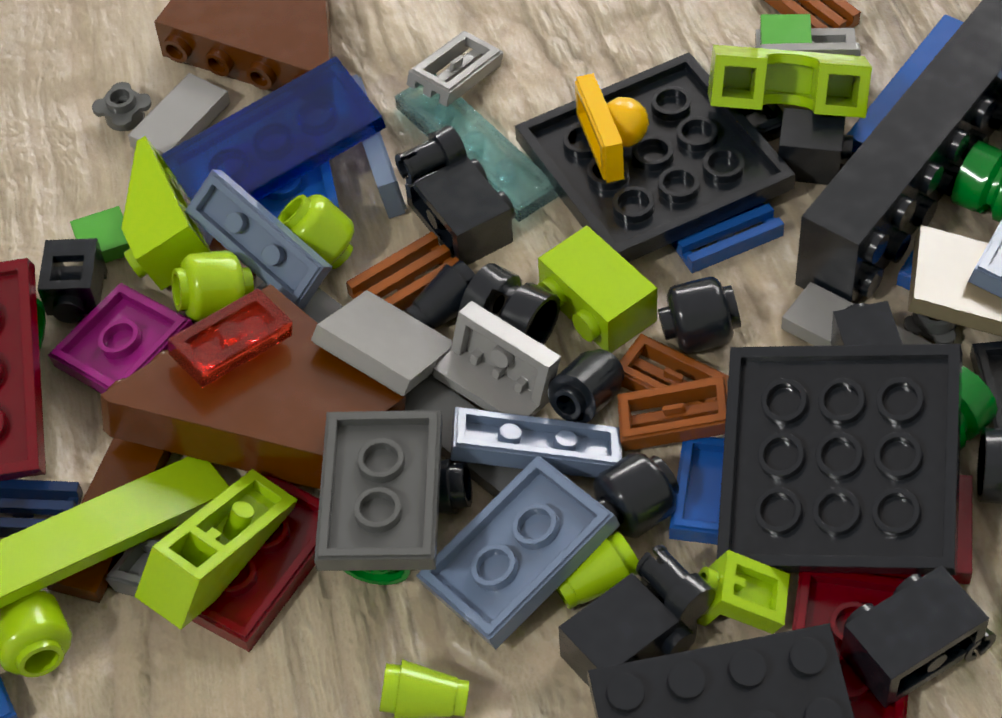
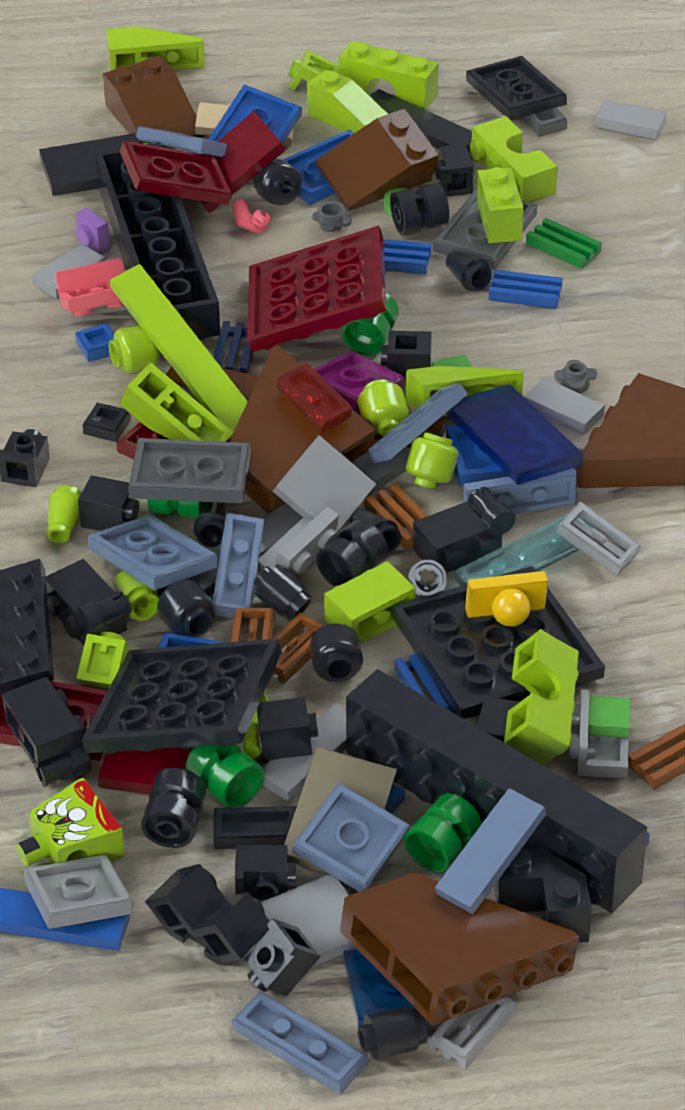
camera: 90 degrees right, 10 degrees down
(186, 669) = (106, 422): none -> black tile
(405, 625) = (106, 504): none -> black brick
(550, 223) = (427, 588): none -> cone

